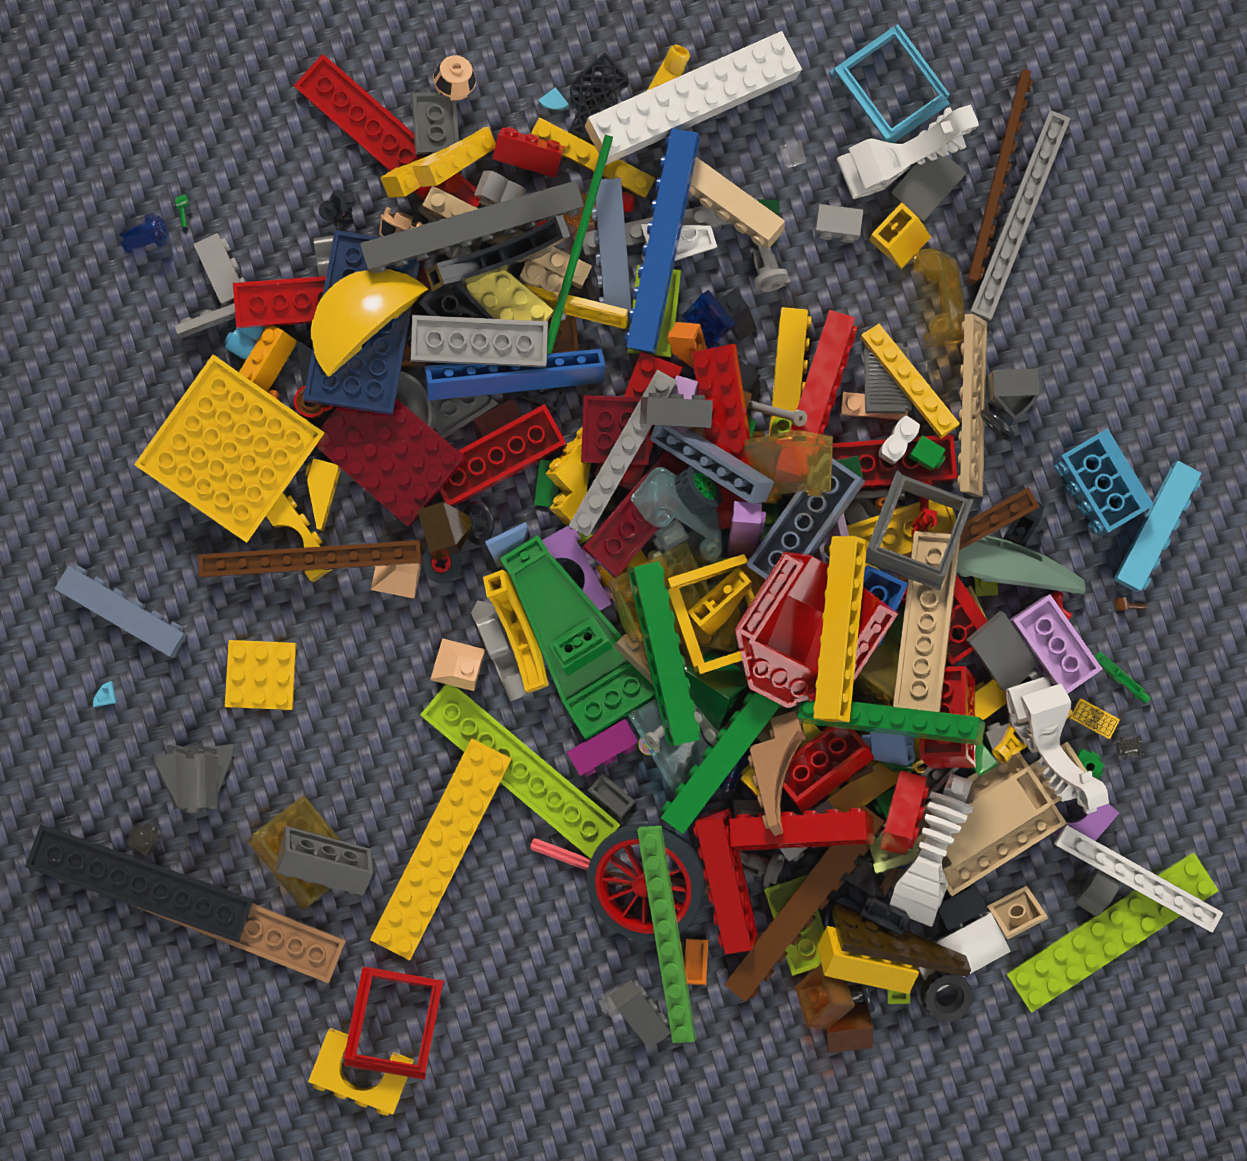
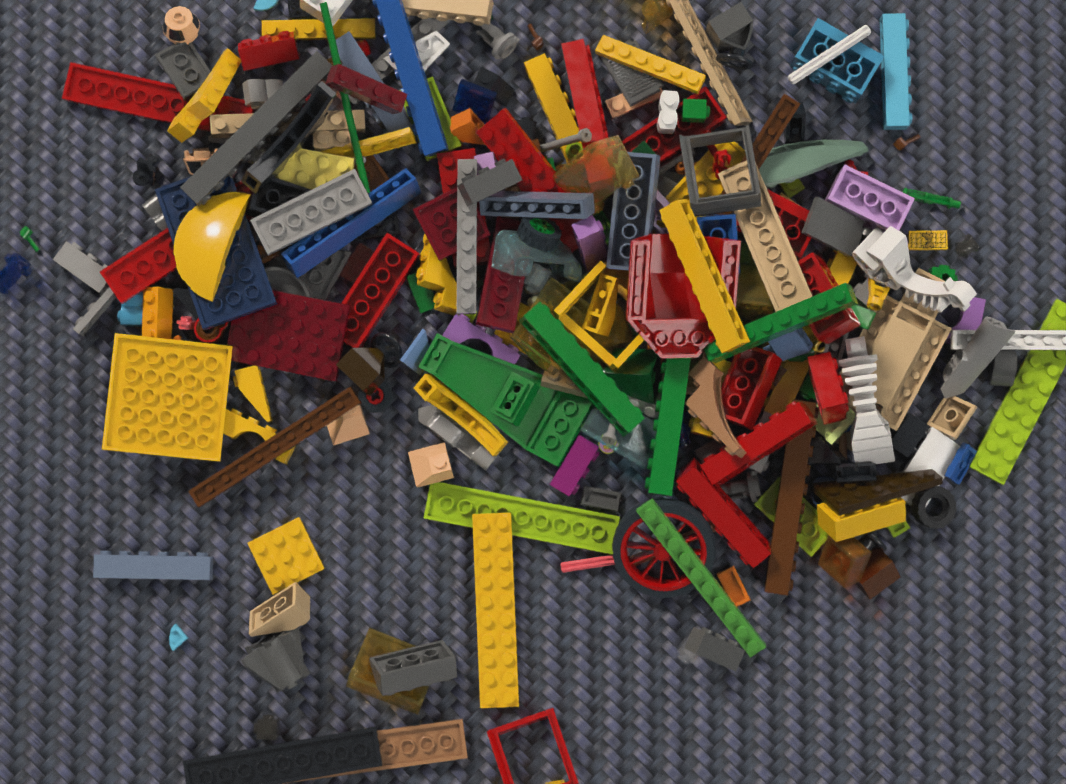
camera: 25 degrees left, 0 degrees up
(223, 730) = (281, 612): none -> tan slope
(291, 382) = (186, 323): none -> coral plate
(604, 247) = (366, 89): none -> dark red brick
(808, 294) = (537, 43): none -> reddish brown hand
(999, 966) = (960, 463): none -> blue plate
(1068, 868) = (971, 361): none -> light grey panel
(1094, 473) = (829, 54): none -> white axle

